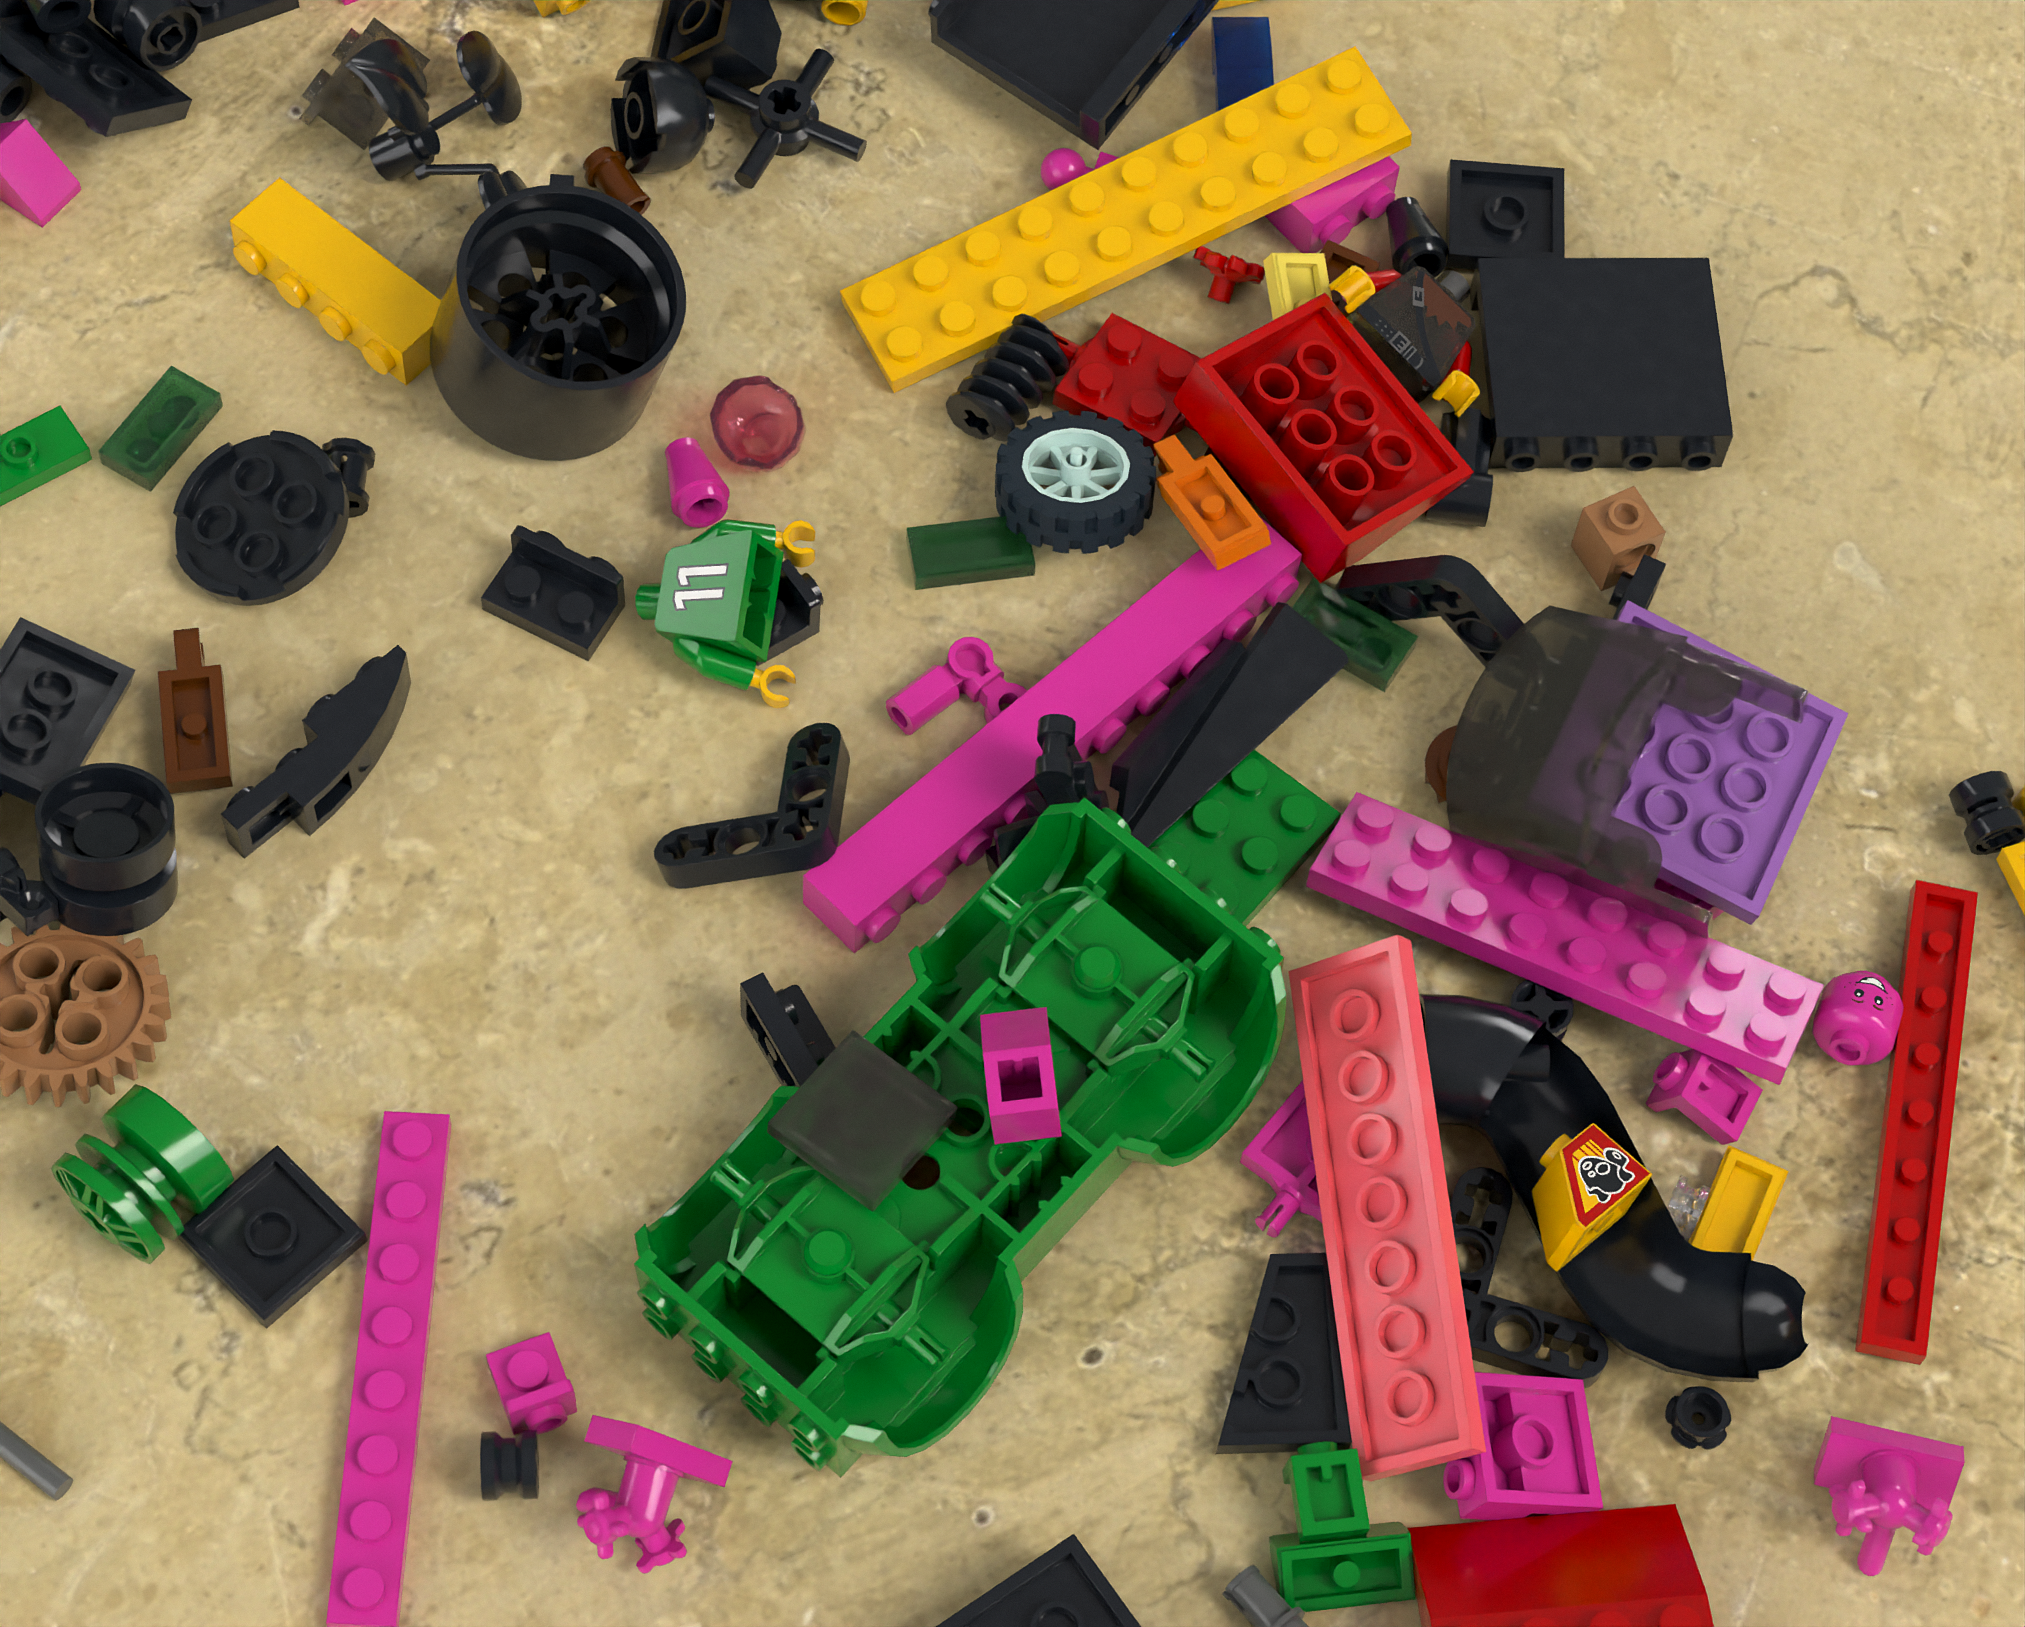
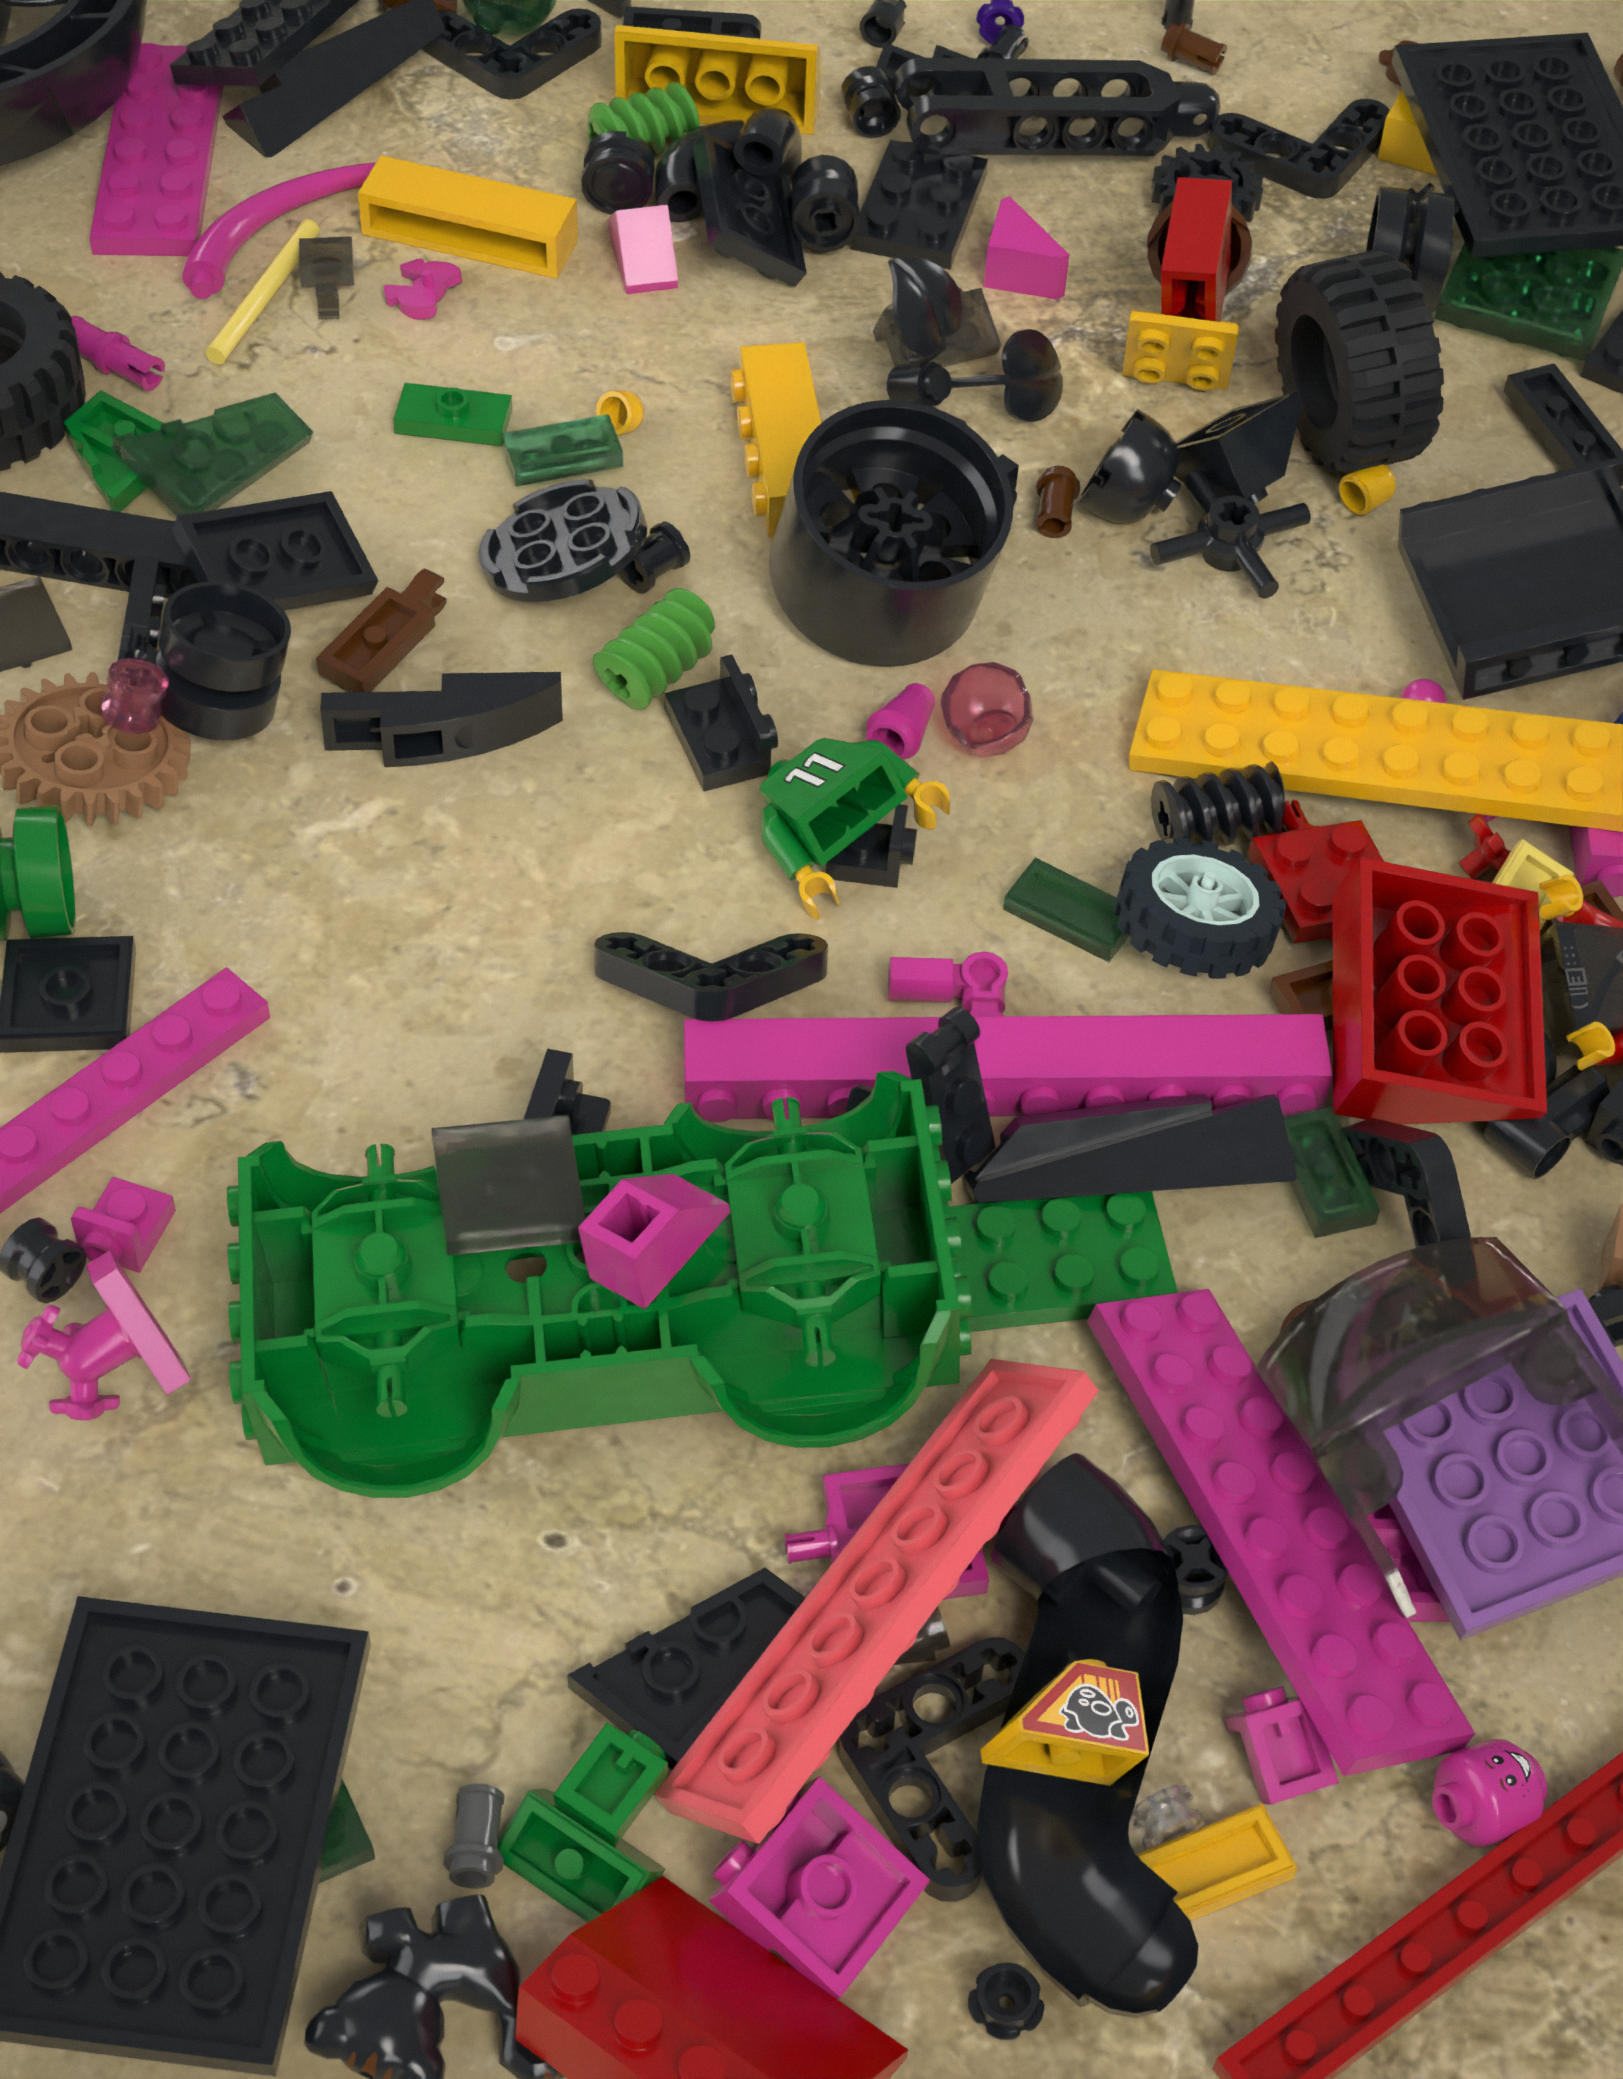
camera: 45 degrees right, 10 degrees down
(72, 937) = (134, 695): none -> clear pink wheel
(159, 352) = (621, 406): none -> yellow hinge
(441, 562) = (656, 648): none -> bright green piece
(1209, 504) = (1282, 984): orange hinge -> none

